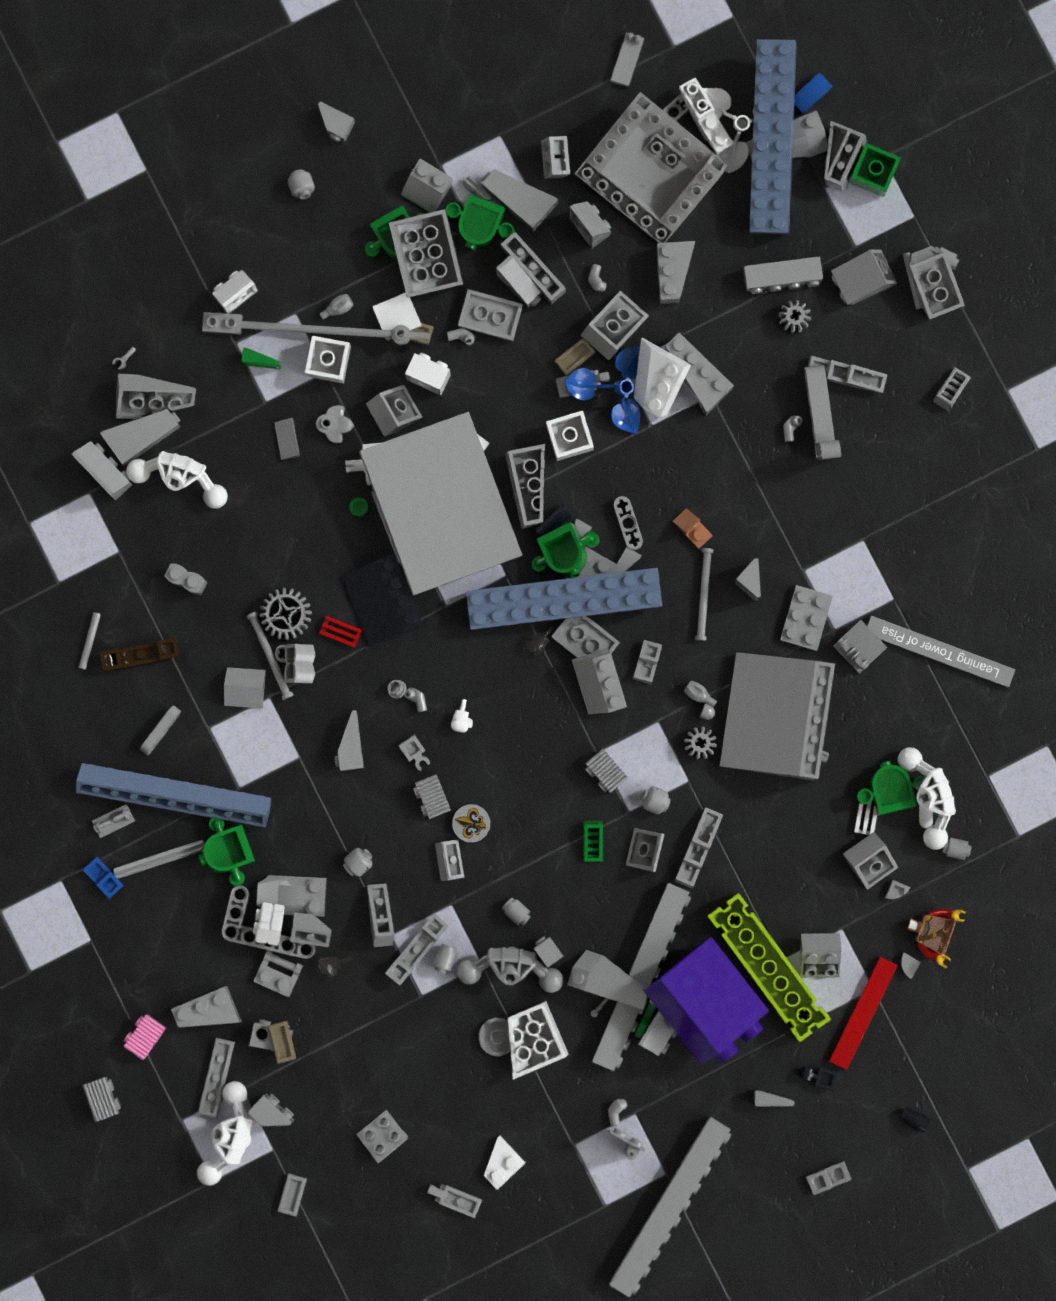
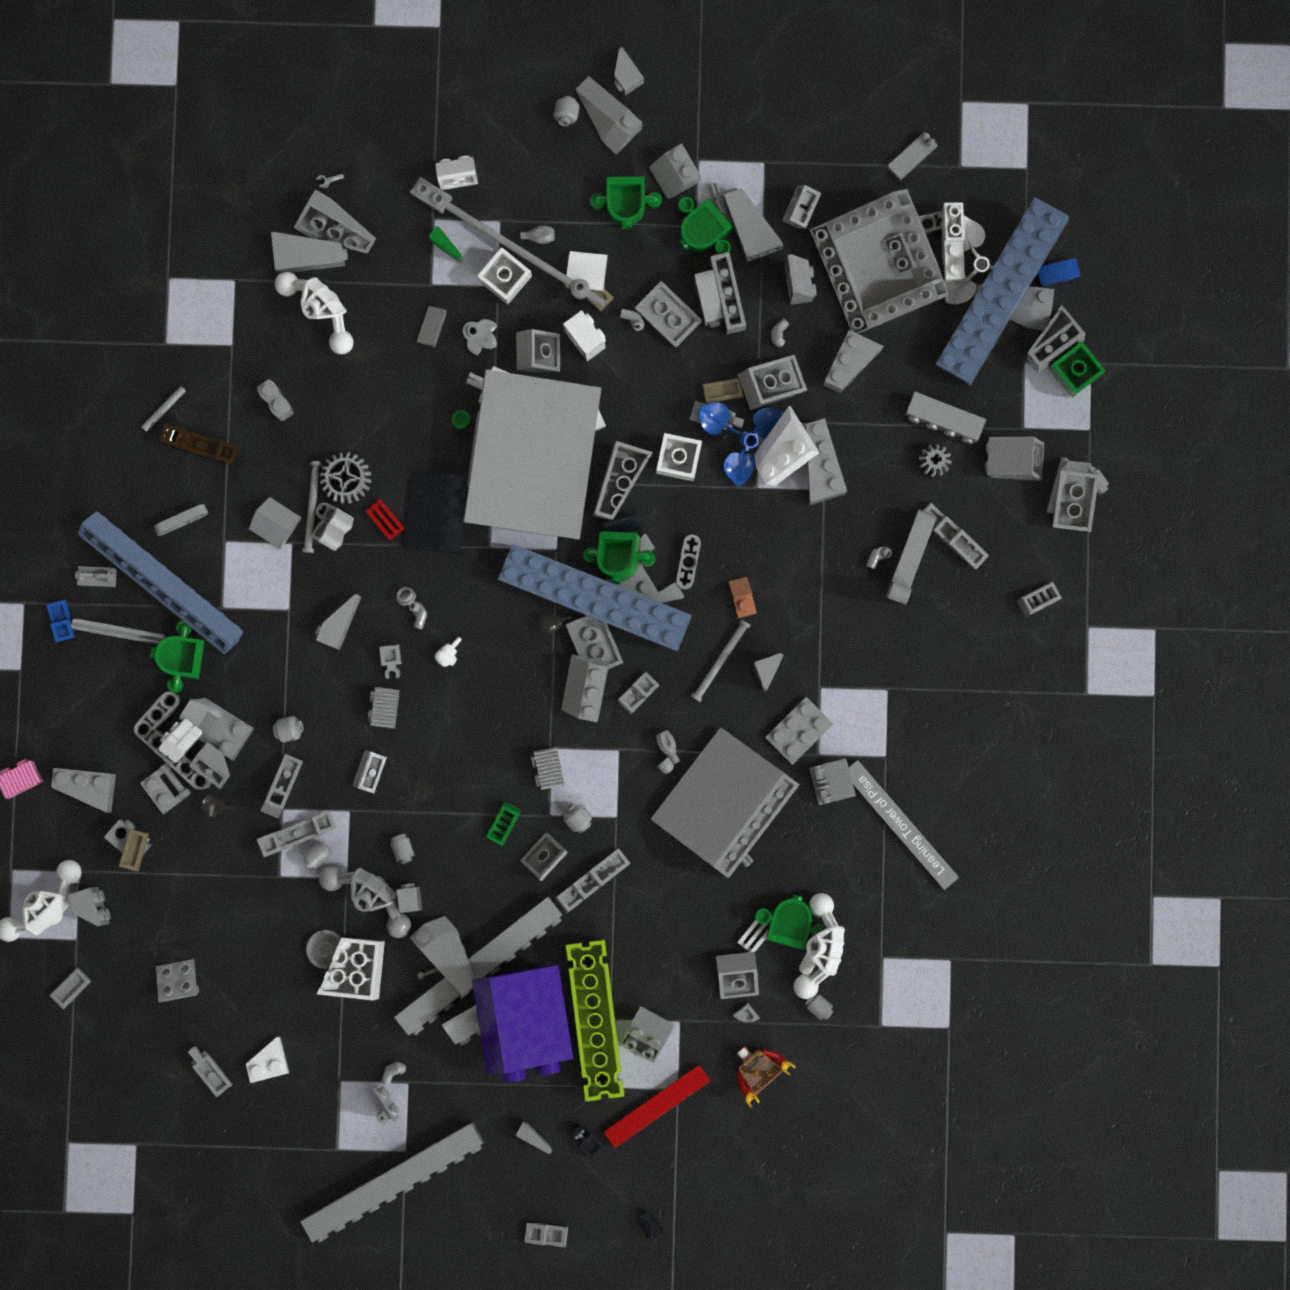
camera: 30 degrees right, 0 degrees up
(103, 469) = (255, 265): light grey slope -> none
(216, 1077) = (61, 849): light grey tile -> none
(343, 169) = (610, 117): none -> light grey wedge
(426, 253) = (641, 229): light grey slope -> none
(471, 823) = (405, 749): tile -> none
(645, 1019) = (460, 1007): green tile -> none
(698, 749) = (639, 793): light grey gear -> none
(909, 965) = (721, 1086): light grey tile -> none

